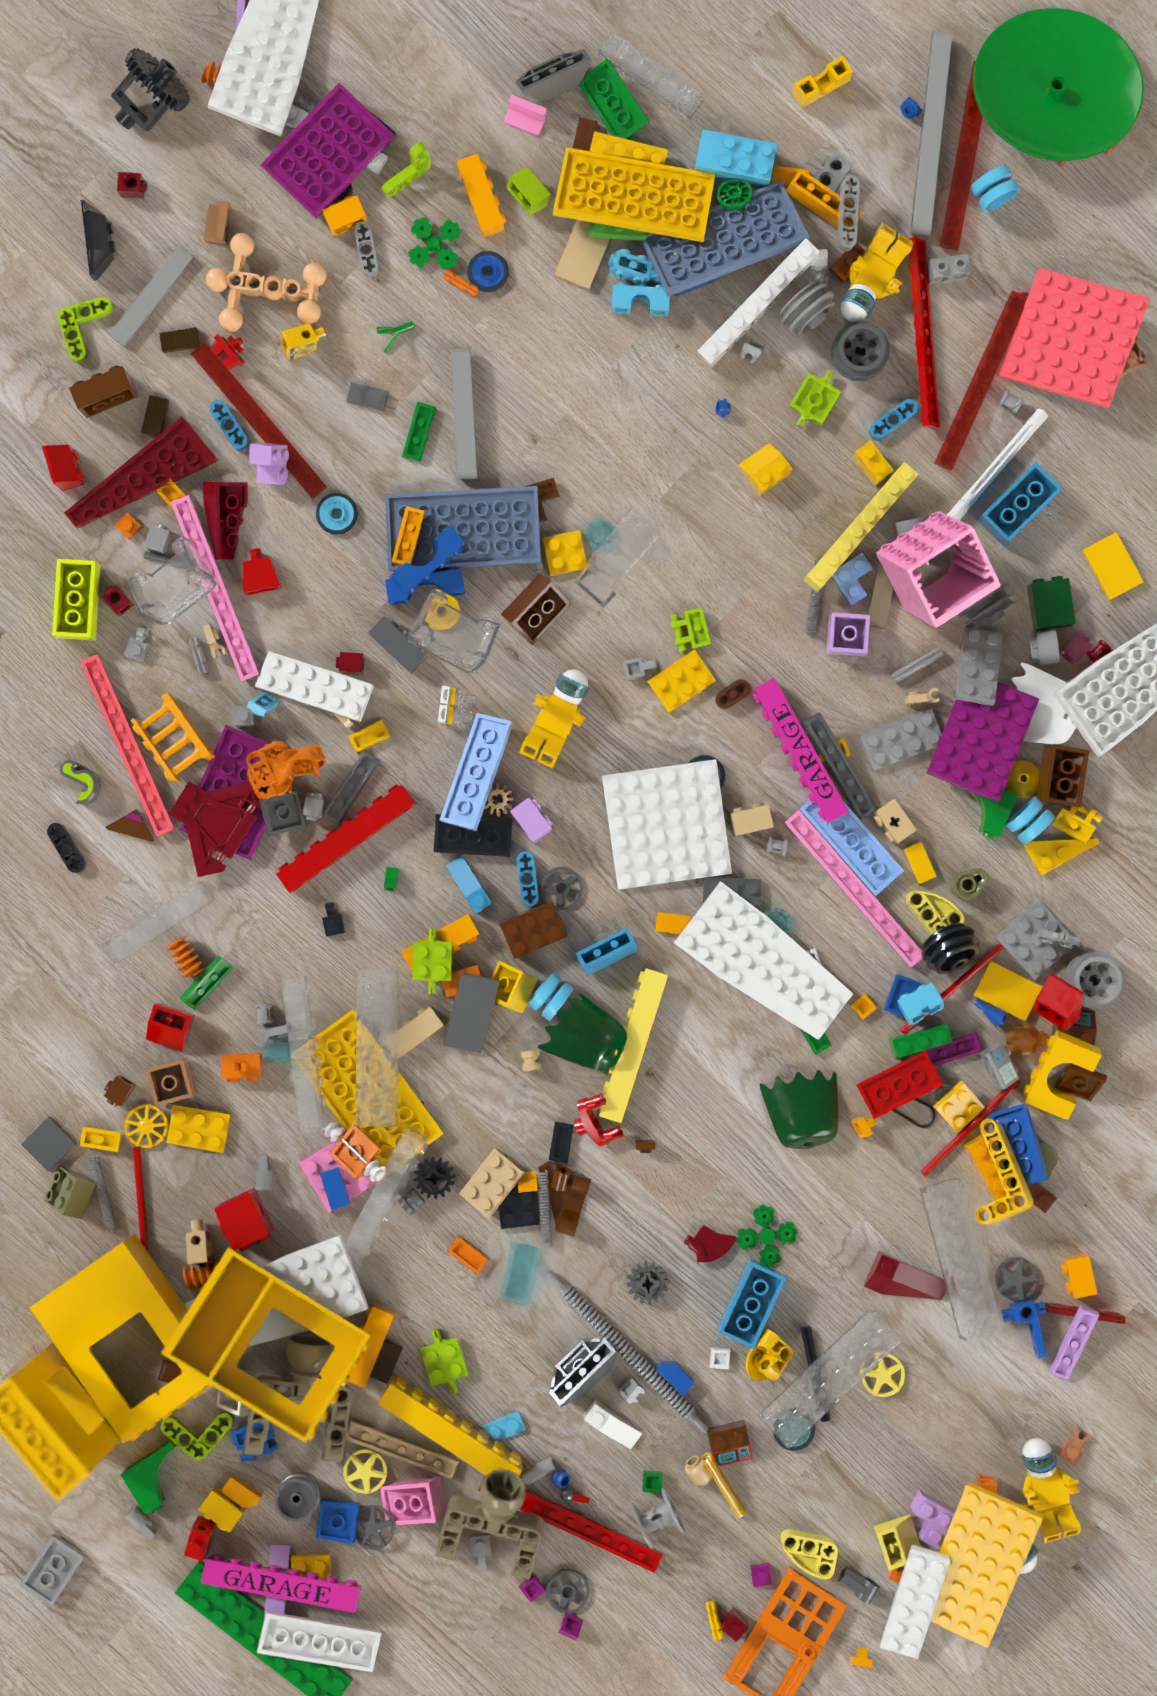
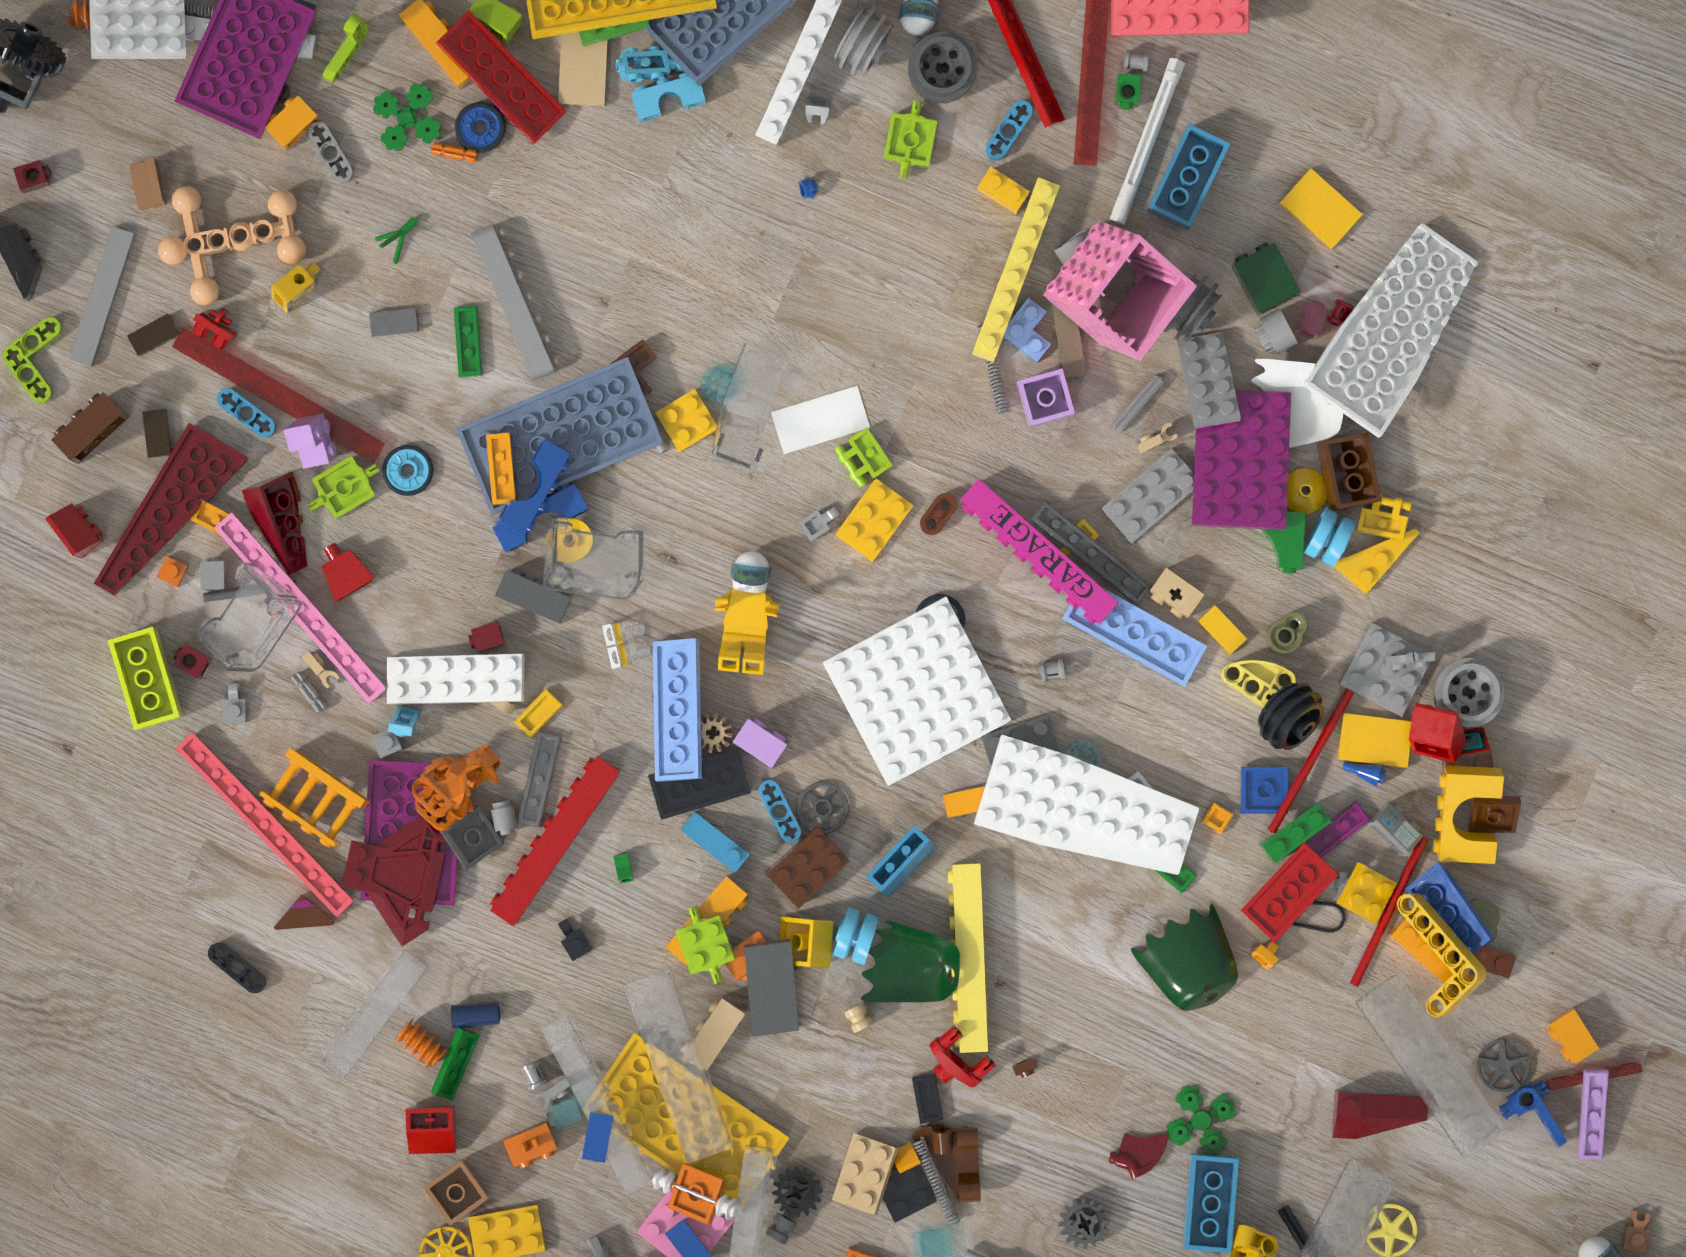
camera: 20 degrees left, 0 degrees up
(84, 777) = (230, 879): dark grey animal -> none
(118, 1090) = (399, 1224): reddish brown brick -> none
(235, 950) = (475, 1014): none -> dark blue pin
(282, 508) = (343, 487): none -> lime plate
(294, 1079) = (597, 1137): none -> blue tile
(517, 236) = (501, 77): none -> red plate
(536, 608) = (677, 497): reddish brown slope -> none
(667, 589) = (820, 419): none -> white sticker
(751, 820) = (1011, 651): tan brick -> none
(765, 469) = (882, 240): yellow slope -> none
(854, 888) = (1157, 686): bright pink plate -> none
(920, 1002) = (1278, 791): medium azure brick -> none
(1002, 416) = (1134, 83): none -> green brick
(1025, 1039) = (1414, 789): clear orange piece -> none

